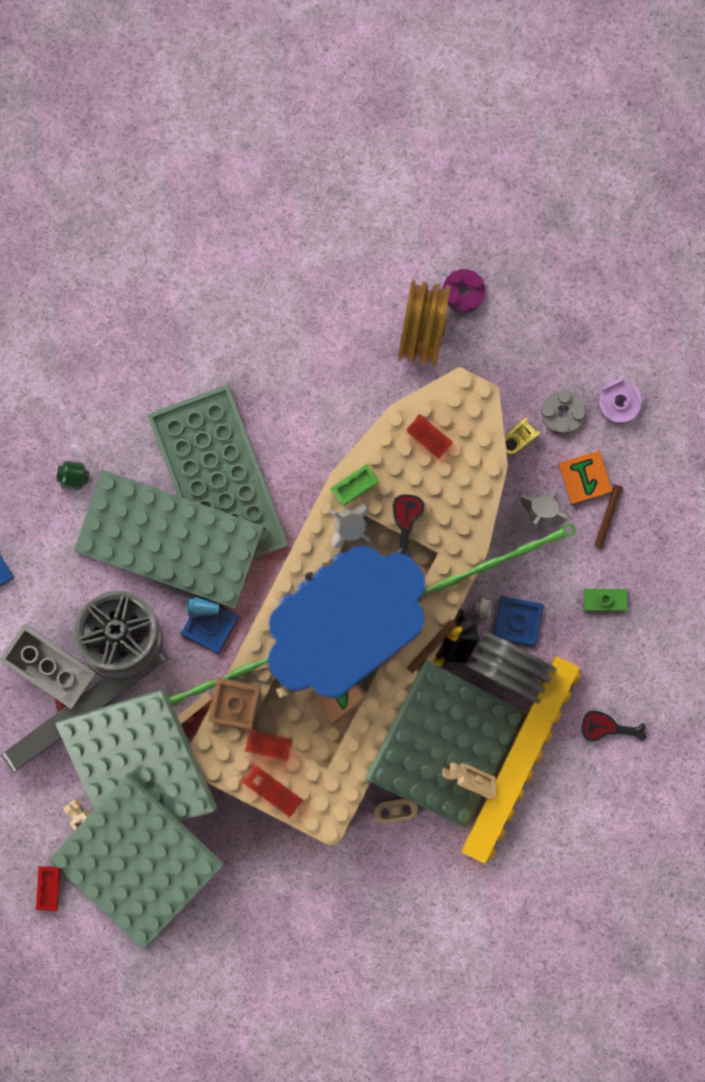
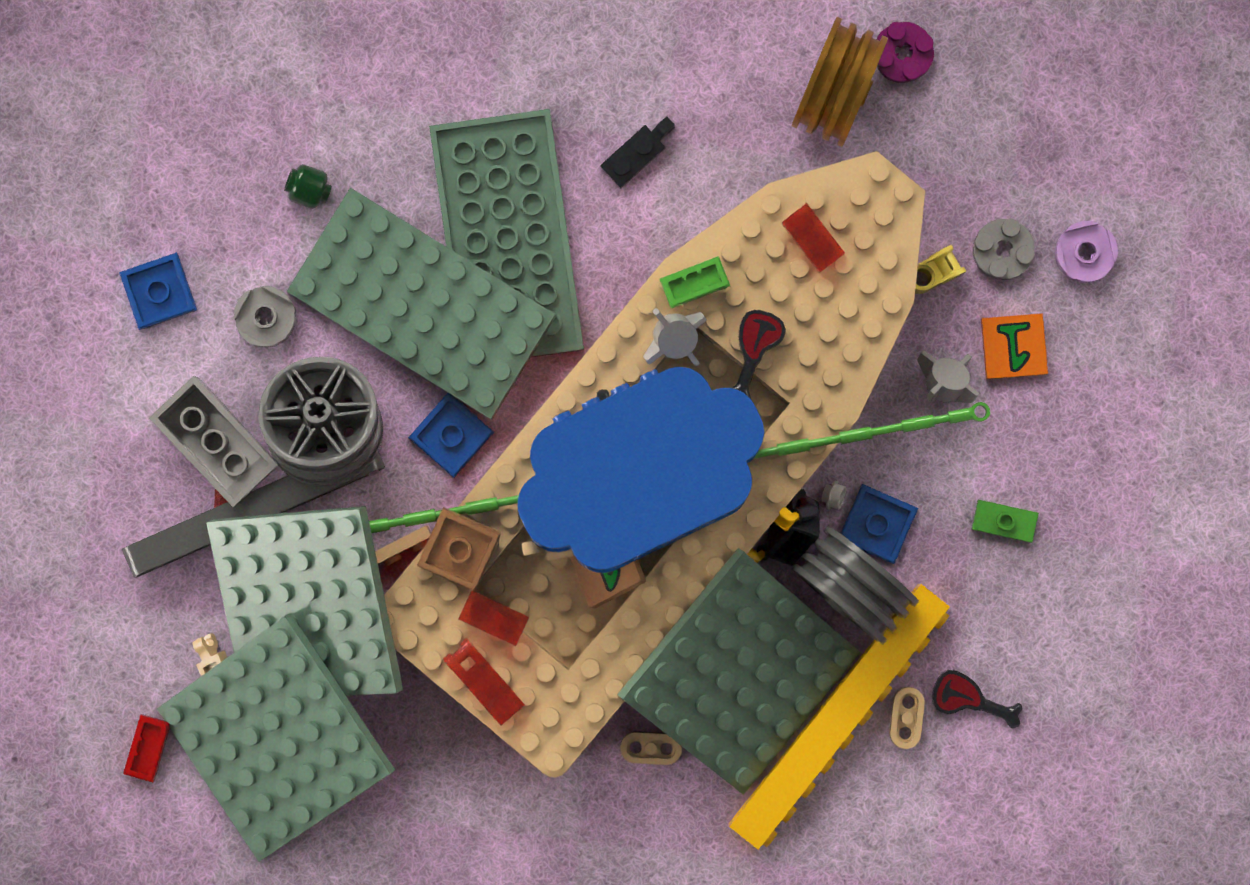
camera: 15 degrees right, 0 degrees up
(52, 578) = (249, 323): none -> light grey plate
(200, 608) = (444, 408): dark azure cone -> none
(294, 401) = (637, 152): none -> black plate
(431, 646) = (752, 530): reddish brown bar -> none
(472, 779) = (766, 729): tan plate -> none
(567, 750) = (906, 717): none -> tan plate
(608, 516) = (1034, 406): reddish brown bar -> none

